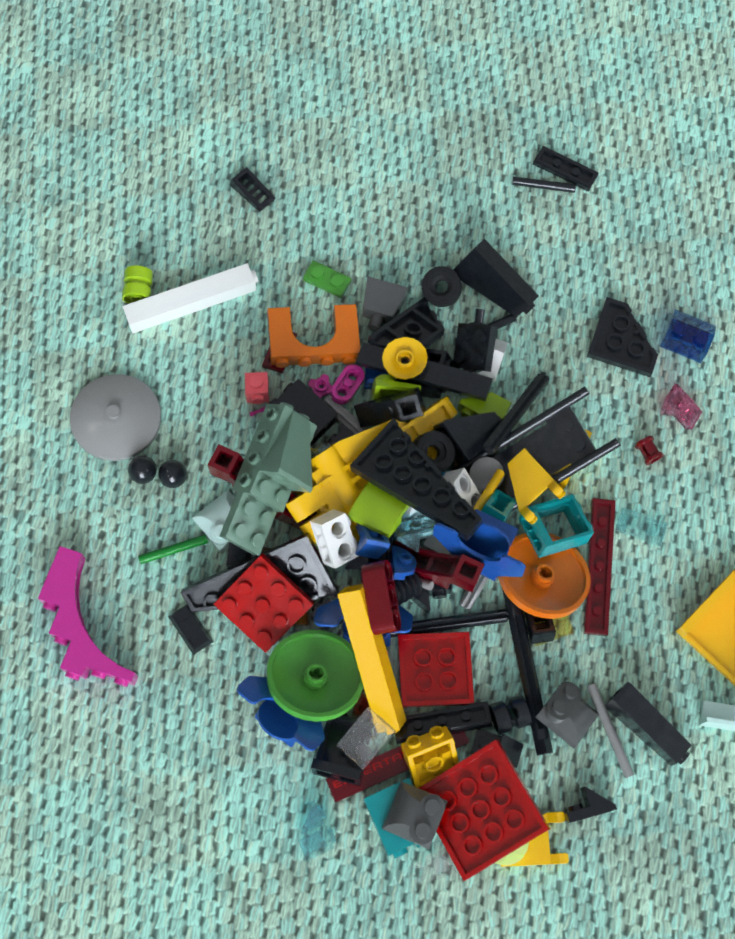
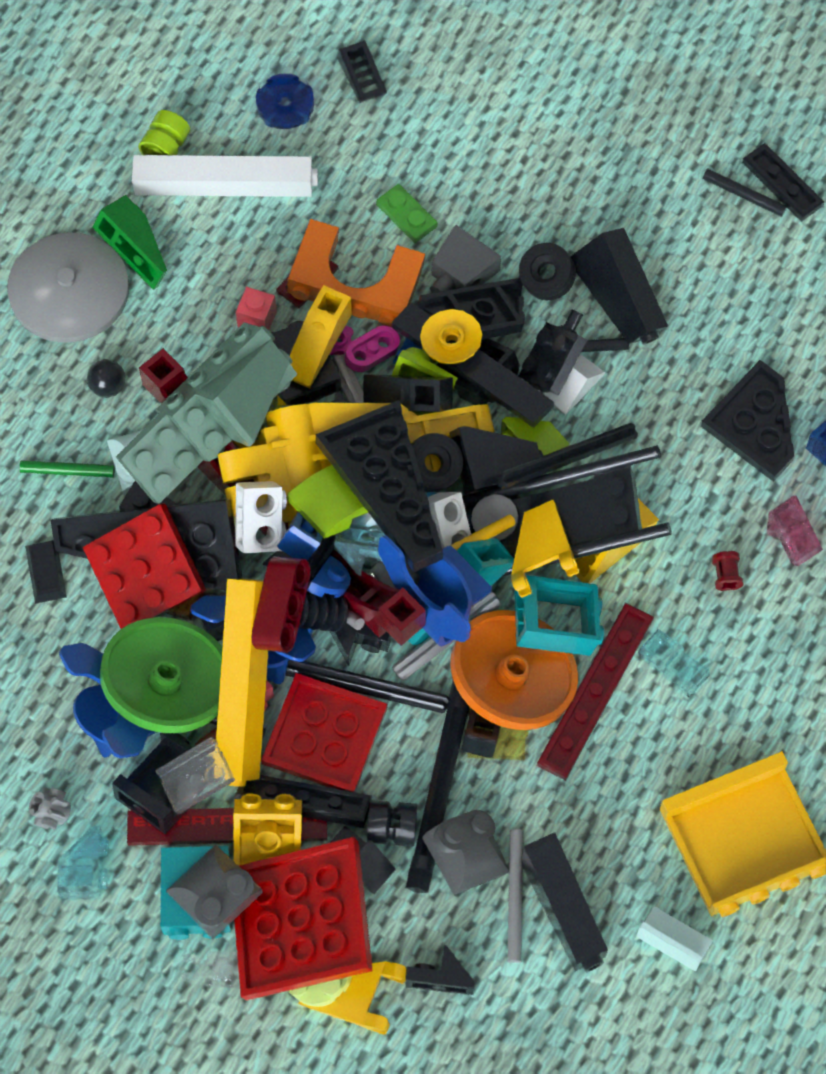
camera: 25 degrees right, 5 degrees down
(142, 469) = (71, 359): black piece -> none
(147, 366) = (131, 236): none -> green slope
(210, 218) = (289, 115): none -> clear blue plate
(271, 800) = (49, 808): none -> light grey gear
(312, 387) = (319, 334): none -> yellow slope

